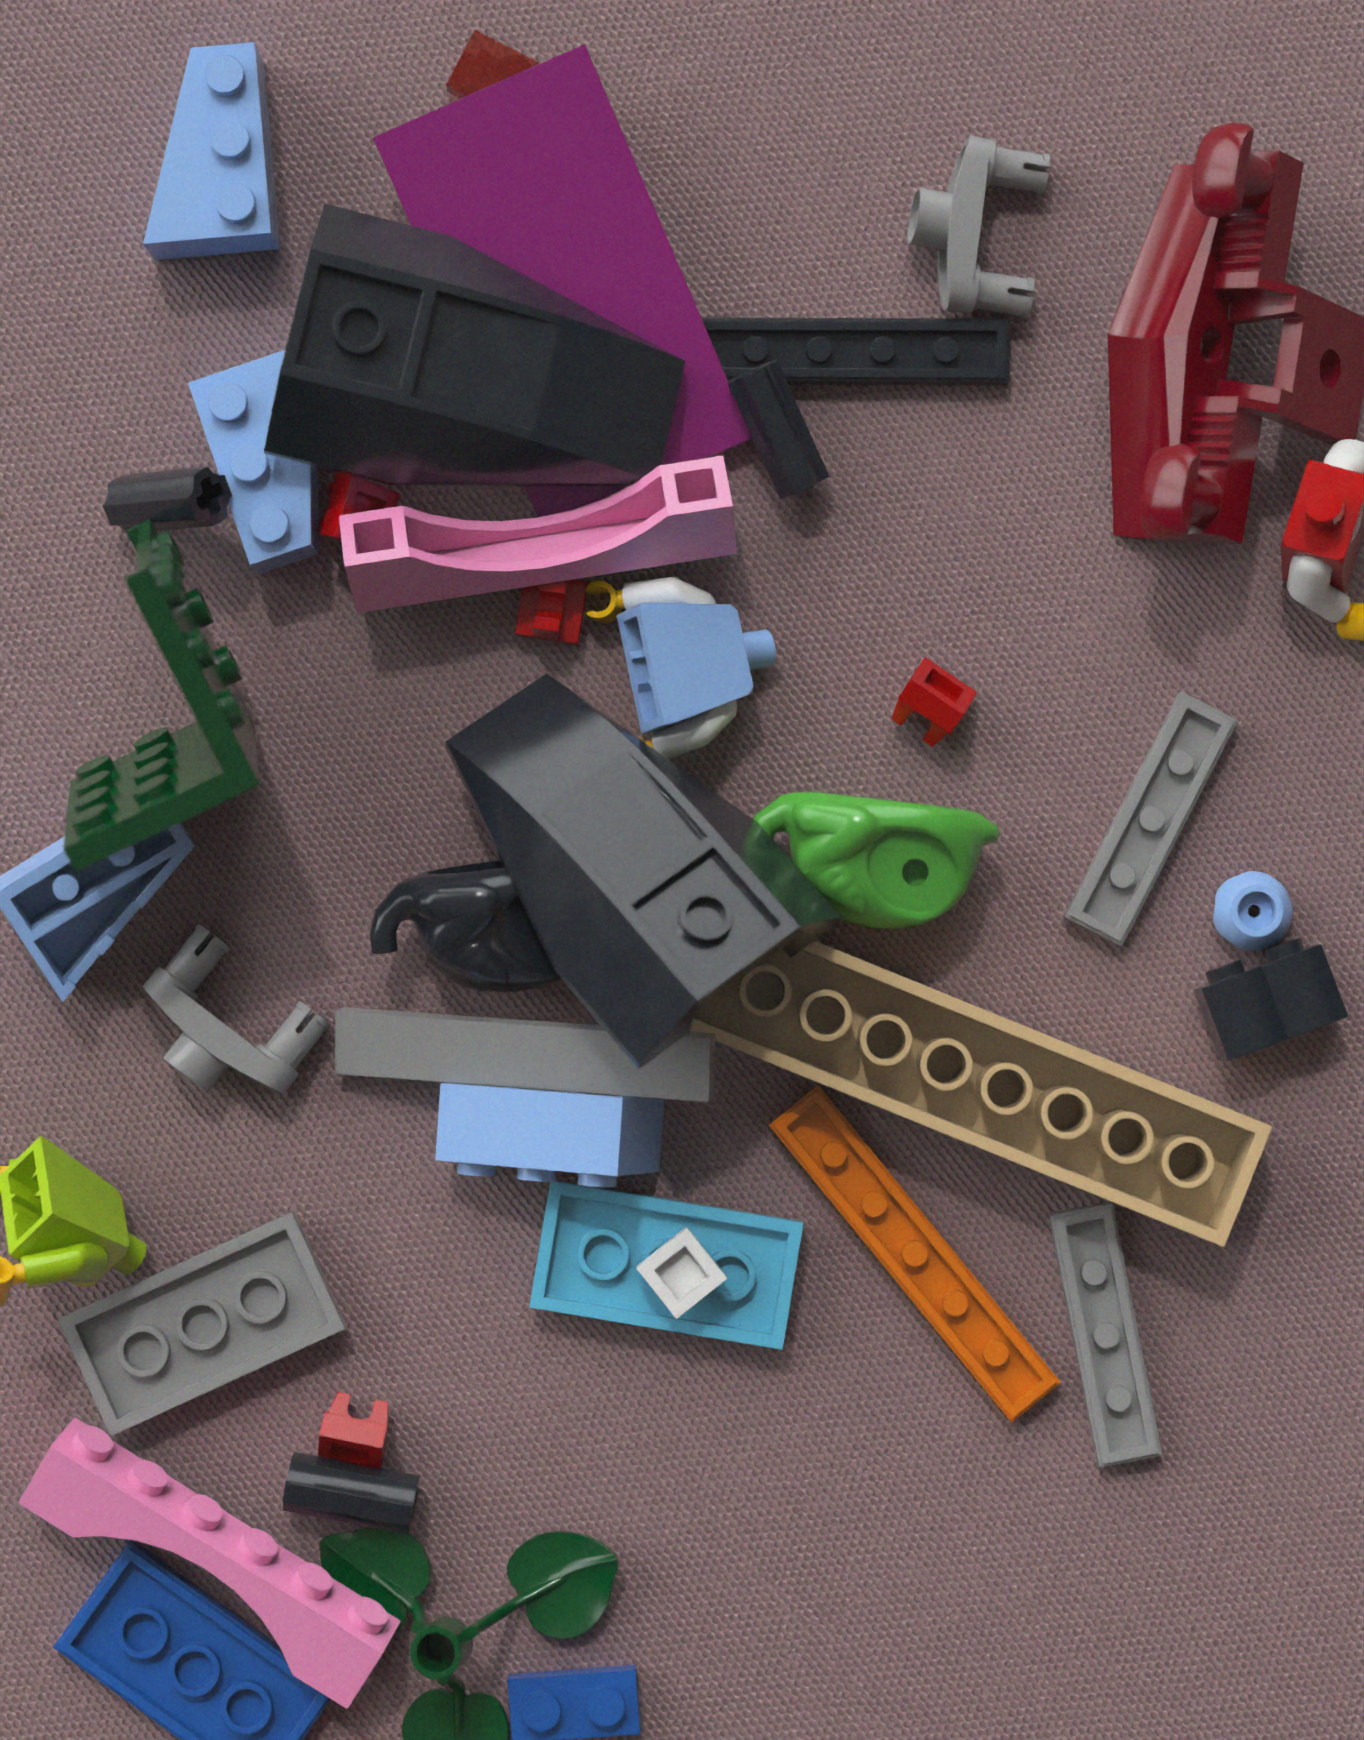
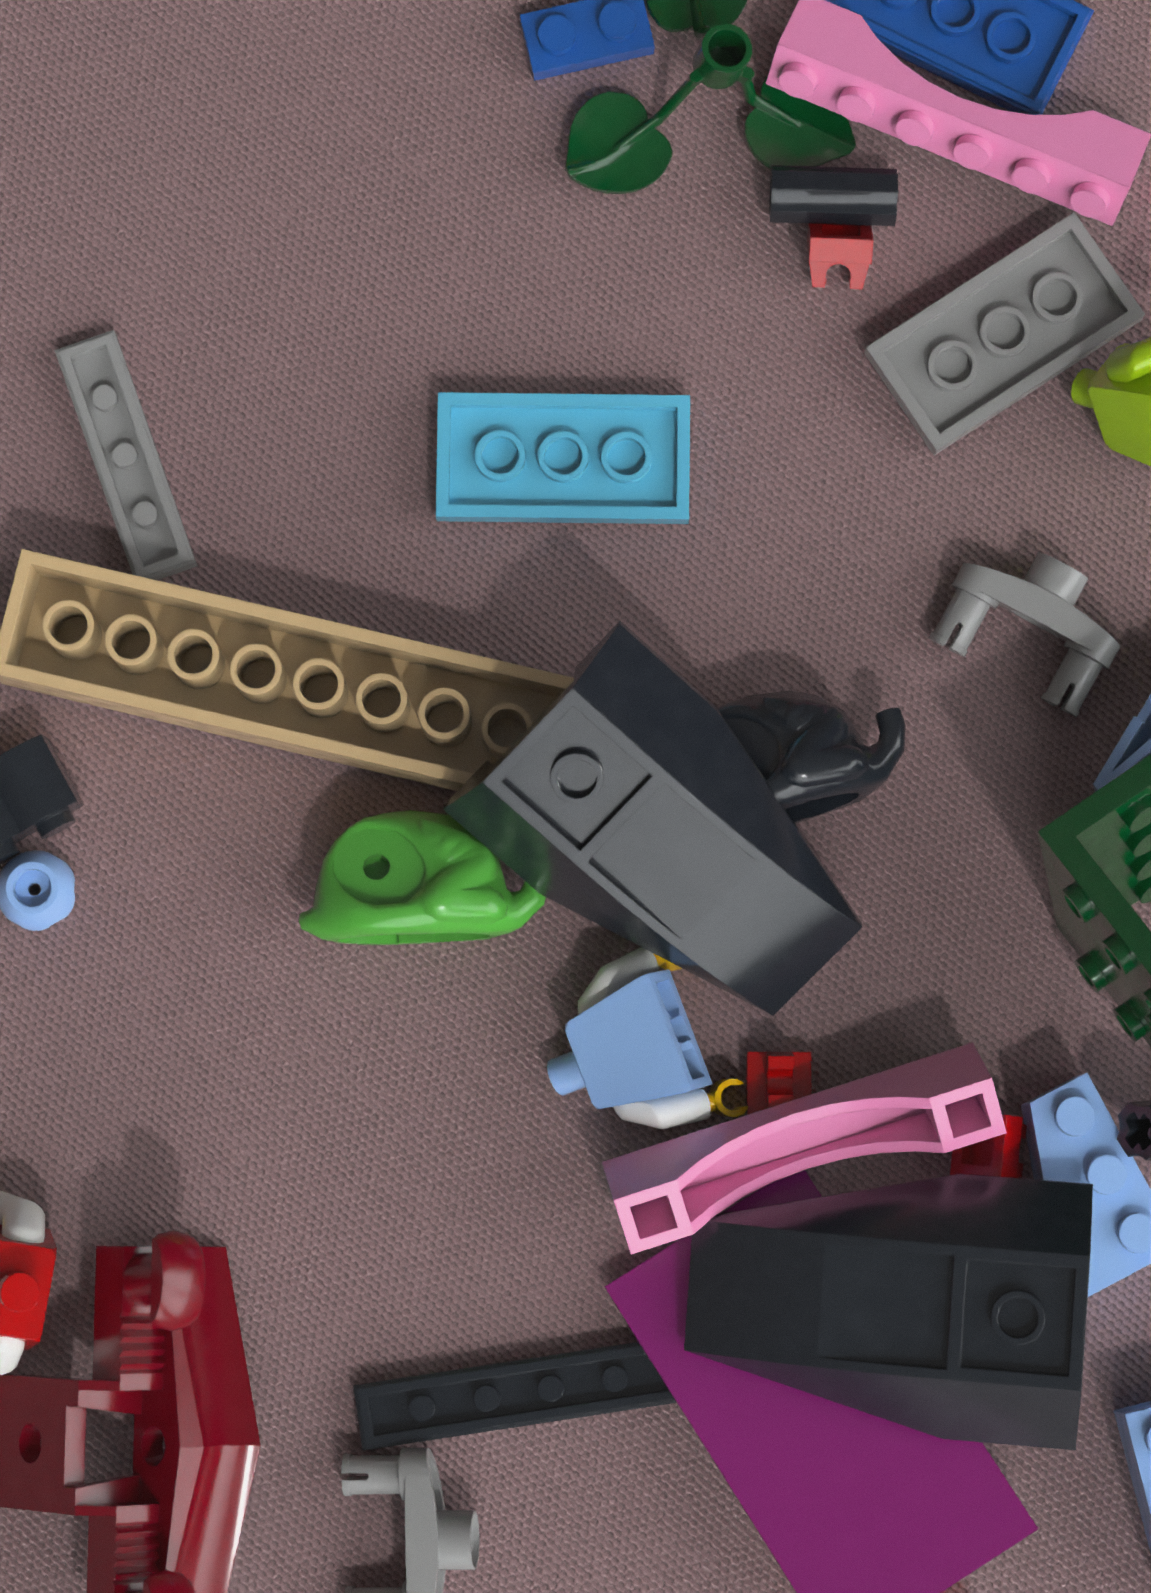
camera: 175 degrees right, 5 degrees down
(516, 1055) = (747, 631): light grey tile -> none
(548, 1133) = (698, 564): light blue wedge -> none
(681, 1272) = (547, 447): white plate -> none
(778, 429) = (579, 1297): black axle -> none
(914, 1253) = (323, 507): orange tile -> none
(936, 697) = (380, 1051): red tile -> none
(1150, 818) = (149, 966): light grey tile -> none

